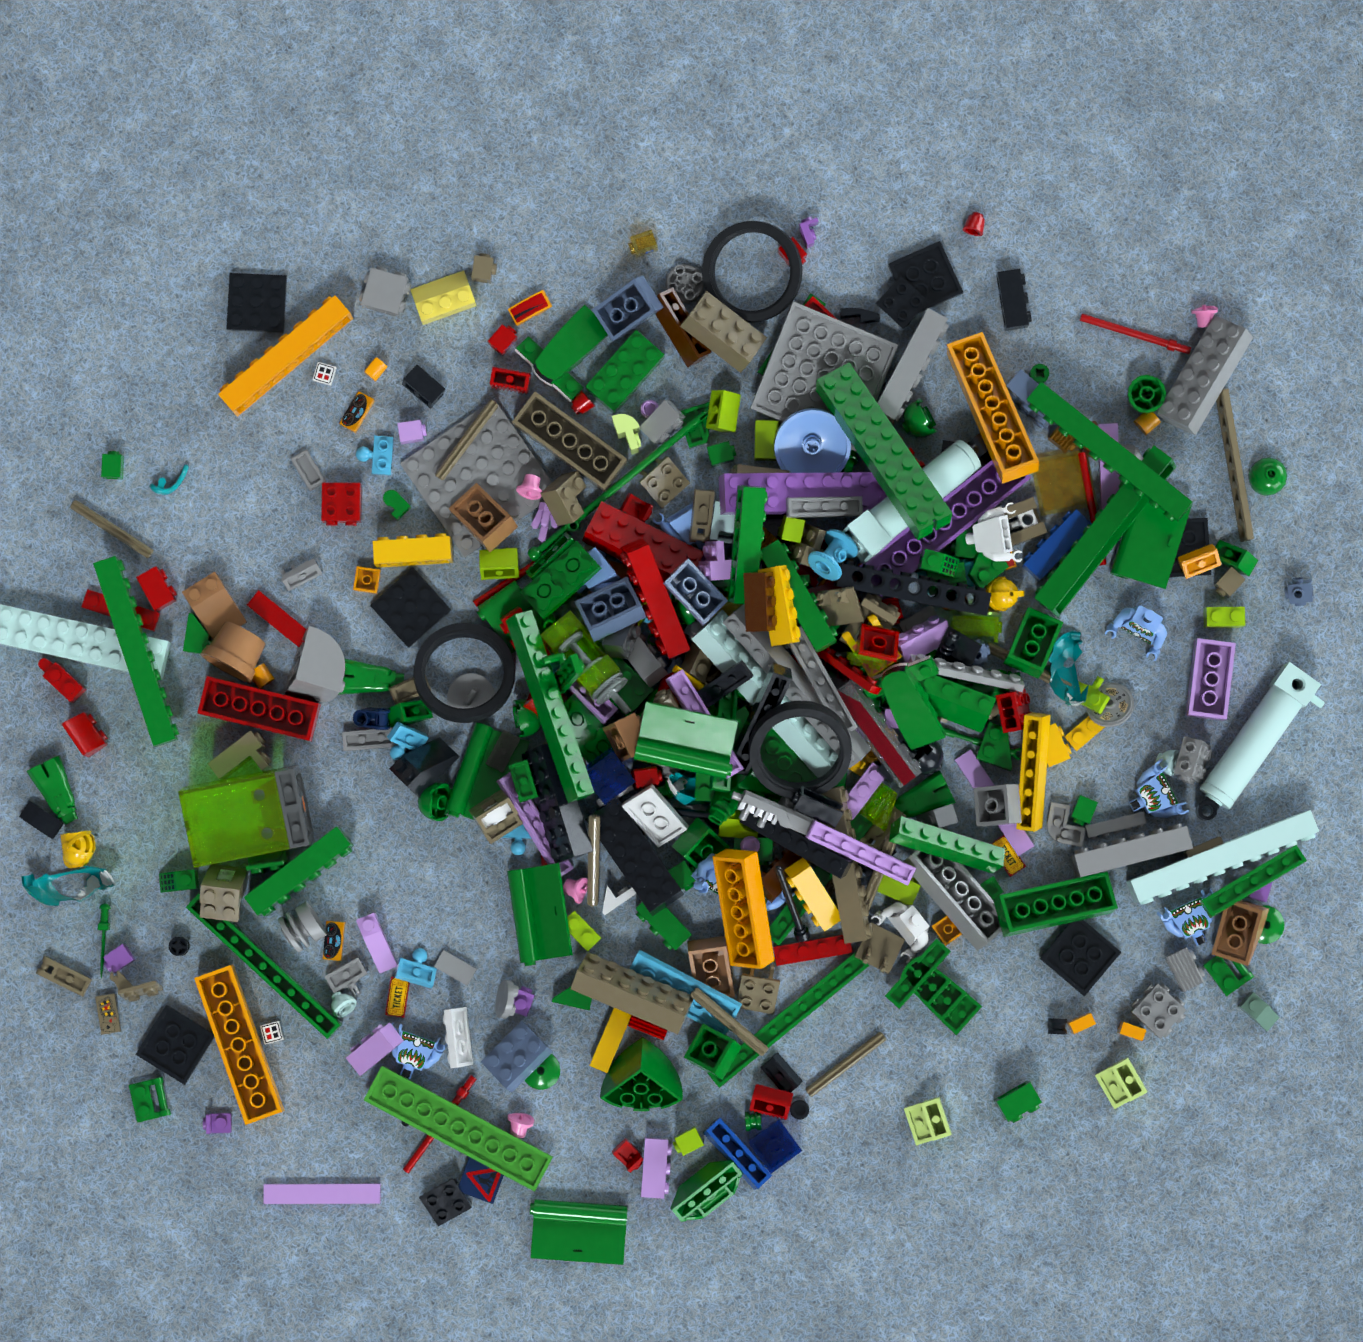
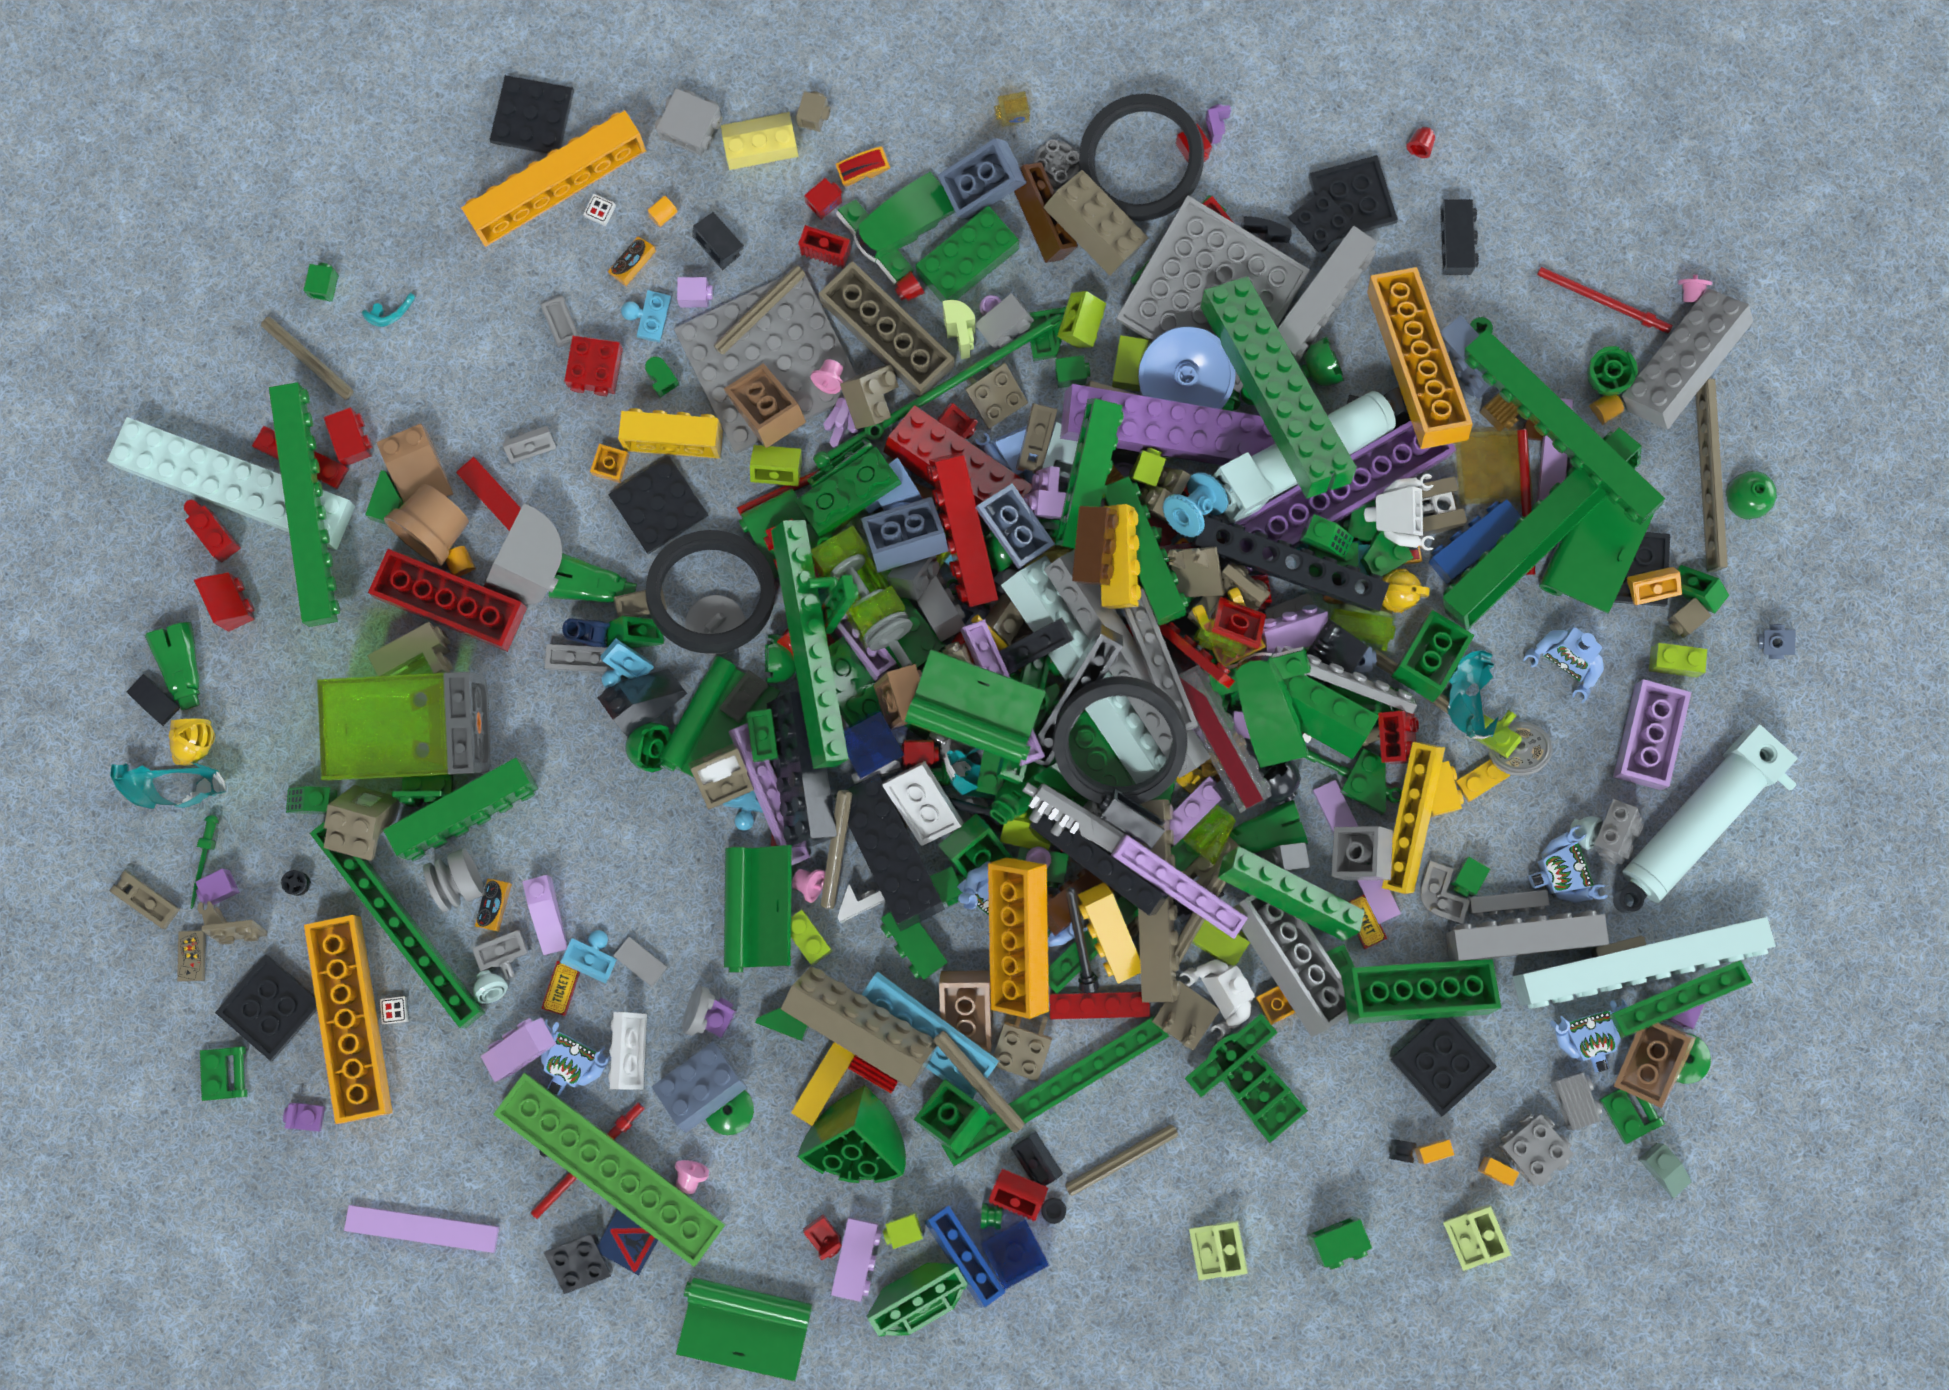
camera: 10 degrees right, 5 degrees down
(824, 507) = (1191, 445): light grey tile -> none

